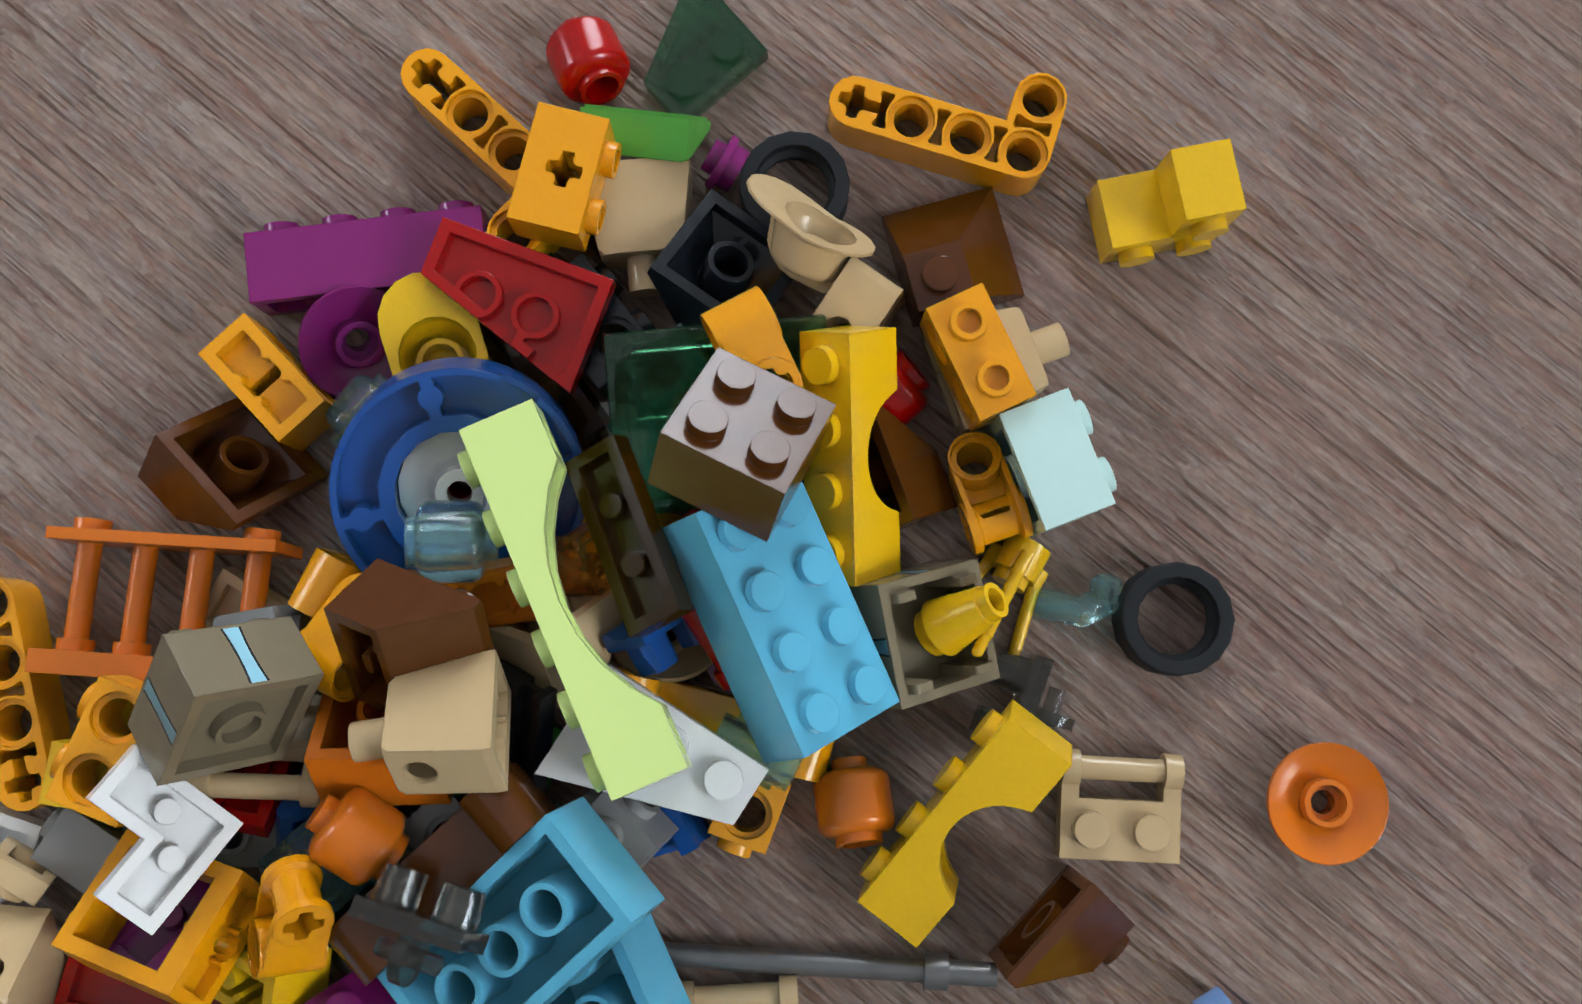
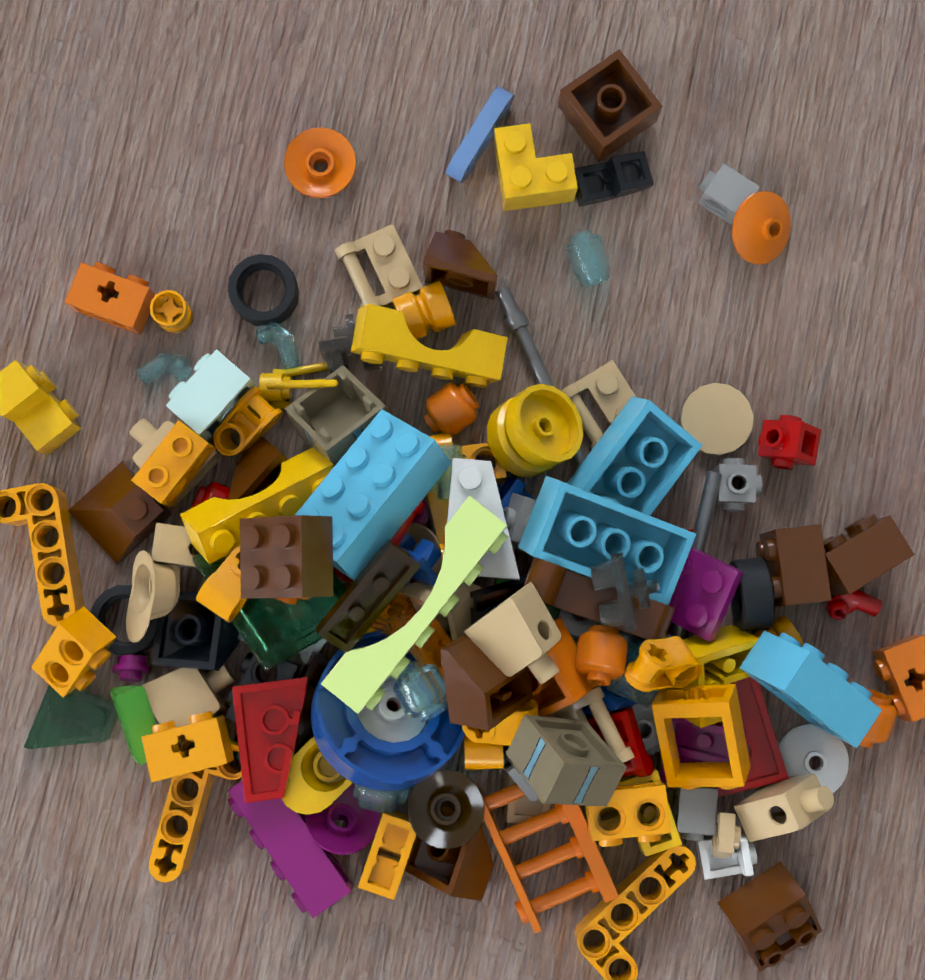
camera: 115 degrees left, 0 degrees up
(177, 841) = (654, 747): white plate -> none
(254, 471) = (427, 814): none -> dark brown dish
(588, 60) = (109, 779): red head -> none
(752, 914) = (535, 431): none -> yellow wheel
(783, 94) = (74, 652): none -> light orange brick
(957, 619) = (323, 402): yellow cone -> none
(1020, 846) = (425, 310): none -> light orange wheel
(1132, 425) = (165, 364): none -> clear light blue arm
(1218, 467) = (166, 306): none -> light orange wheel
(1300, 376) = (90, 293): none -> orange brick

